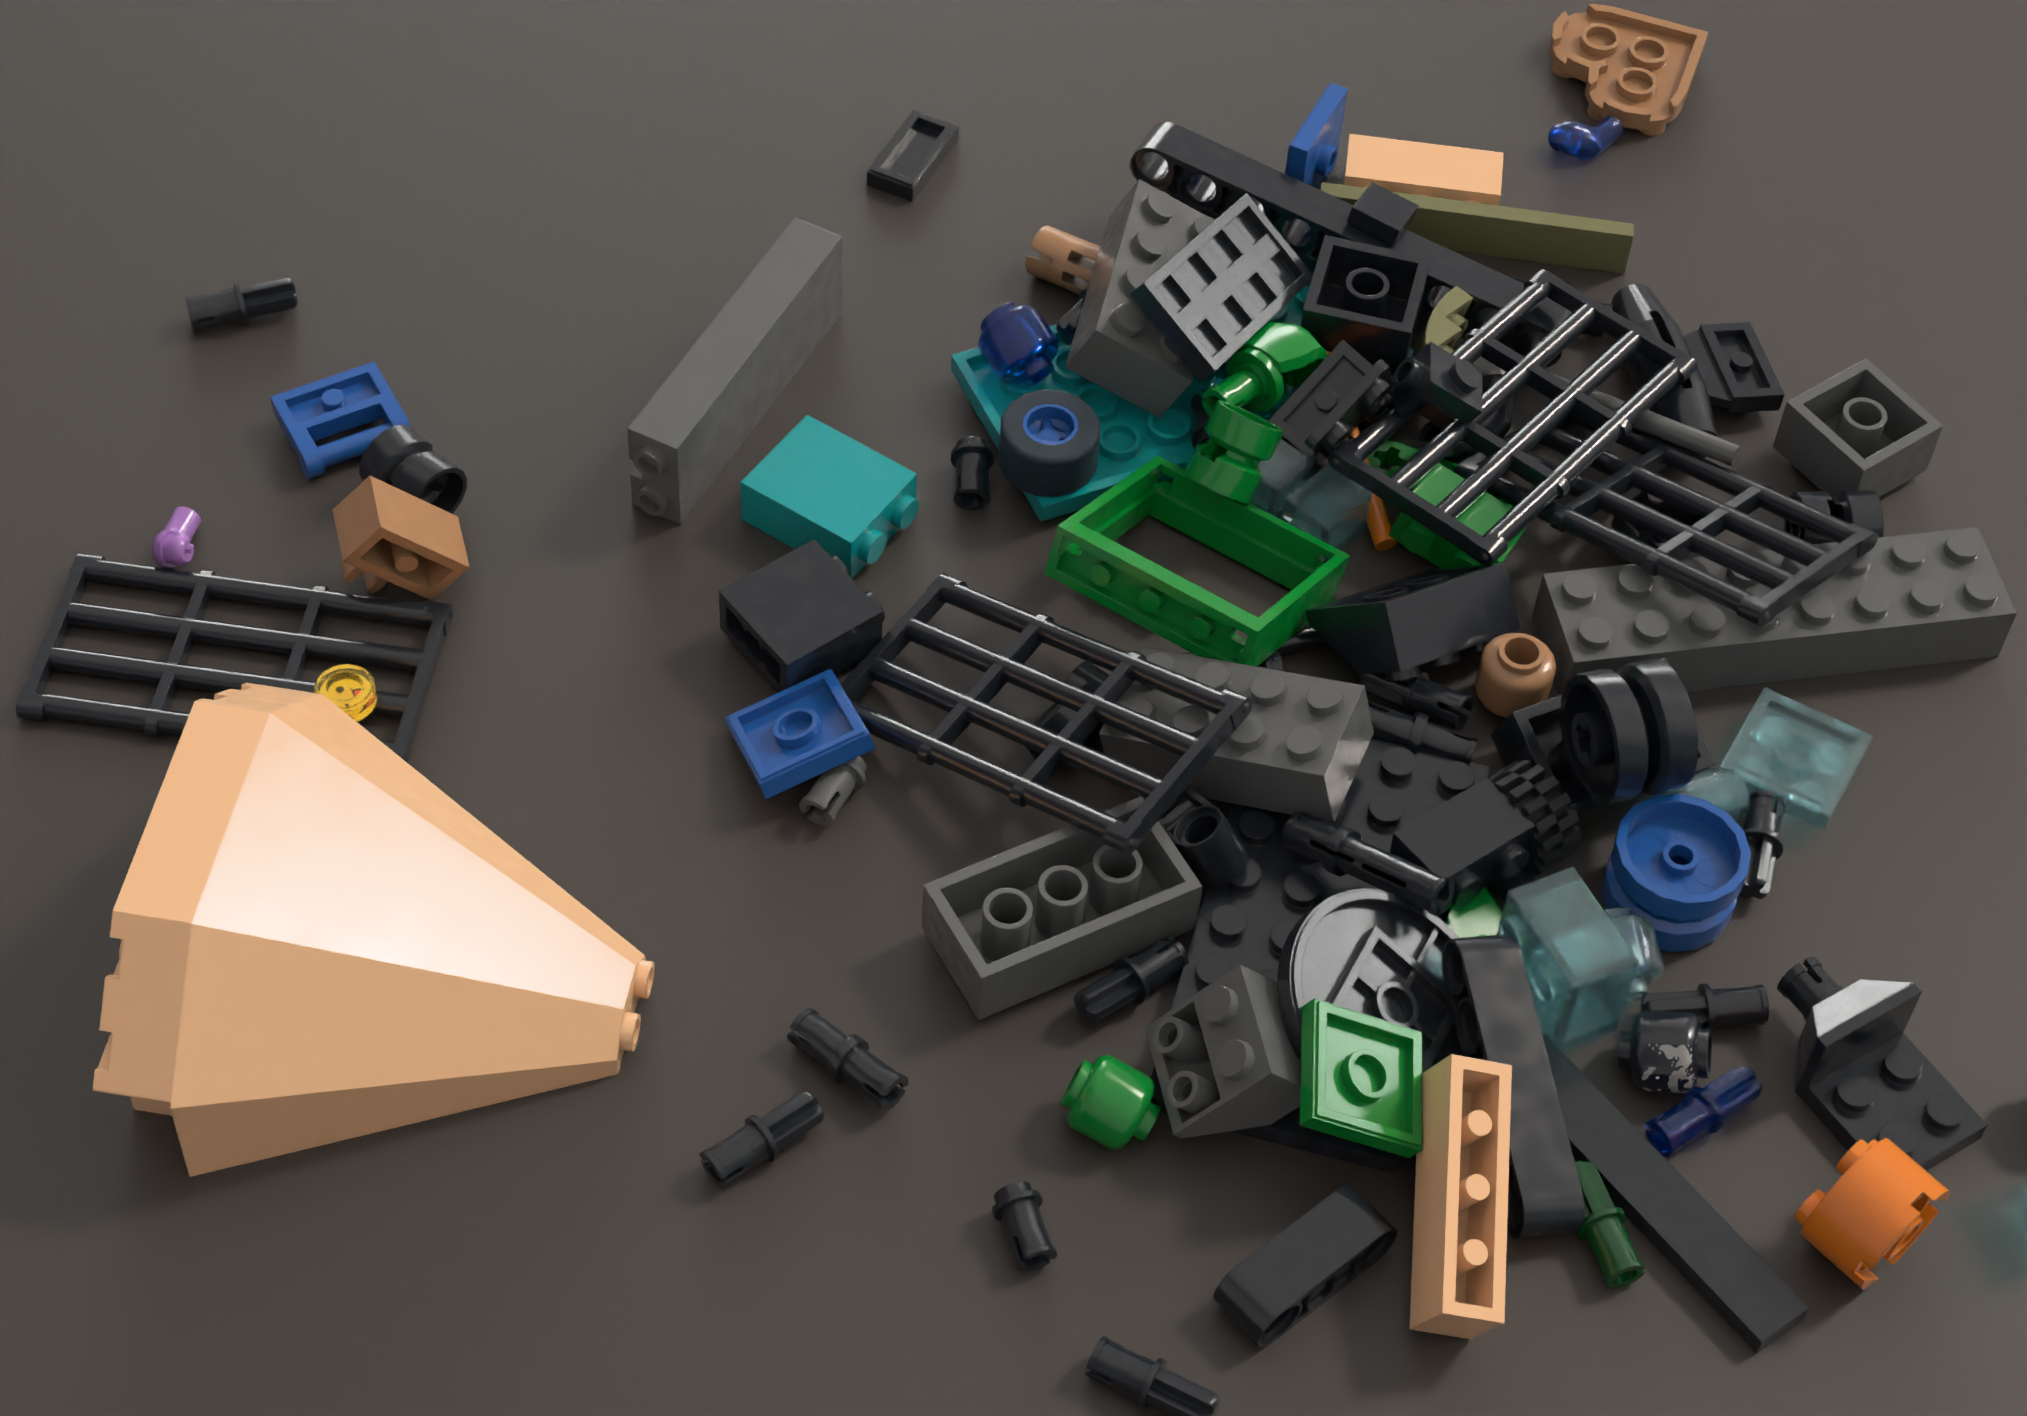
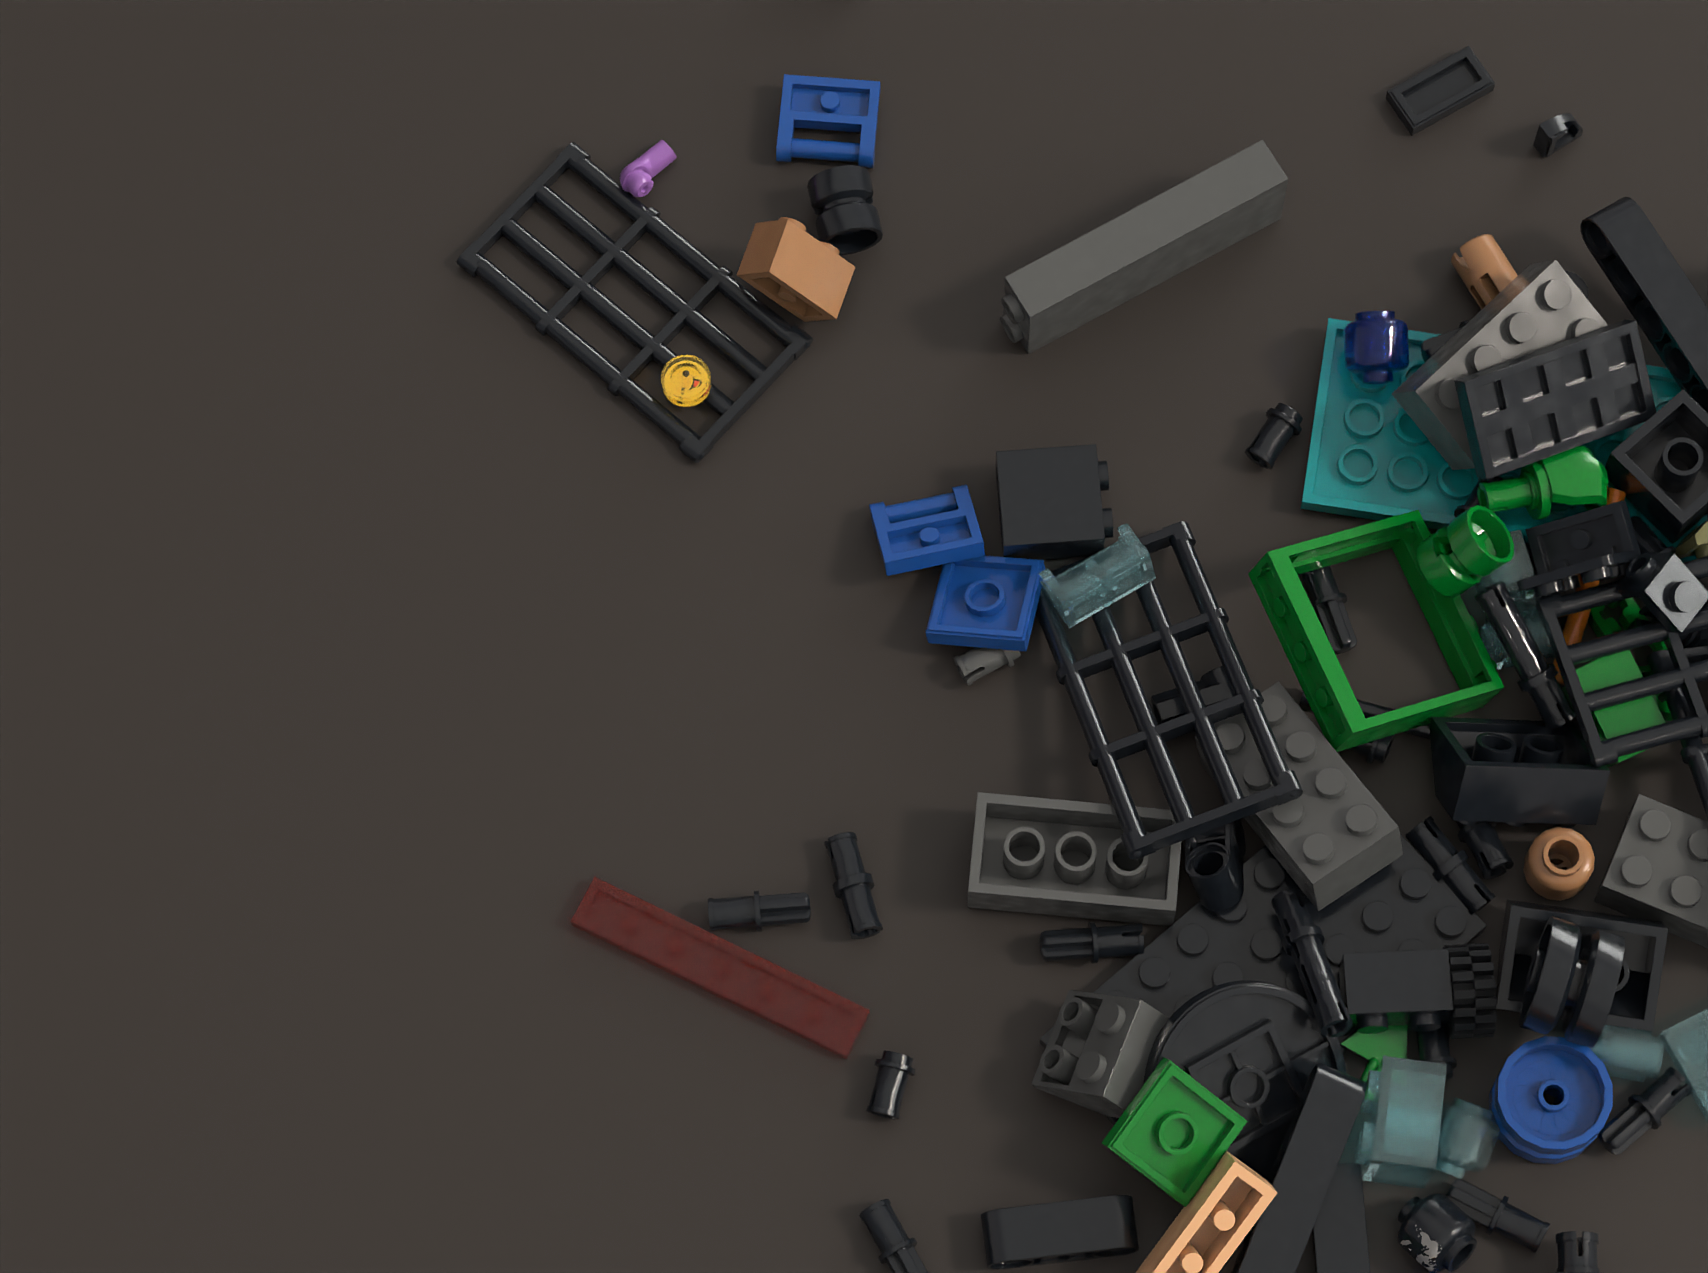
camera: 40 degrees right, 20 degrees up
(340, 946) = (558, 598): light nougat piece -> none
(694, 703) = (927, 531): none -> blue plate
(756, 1218) = (720, 968): none -> clear red tile
(830, 492) = (1147, 400): teal brick -> none
(903, 649) = (1099, 578): none -> clear light blue hinge
(1042, 139) = (1556, 134): none -> black tile
(1049, 443) = (1342, 435): black wheel -> none
(1110, 1102) = (1009, 1030): green head -> none
(1363, 522) = (1534, 671): none -> black pin

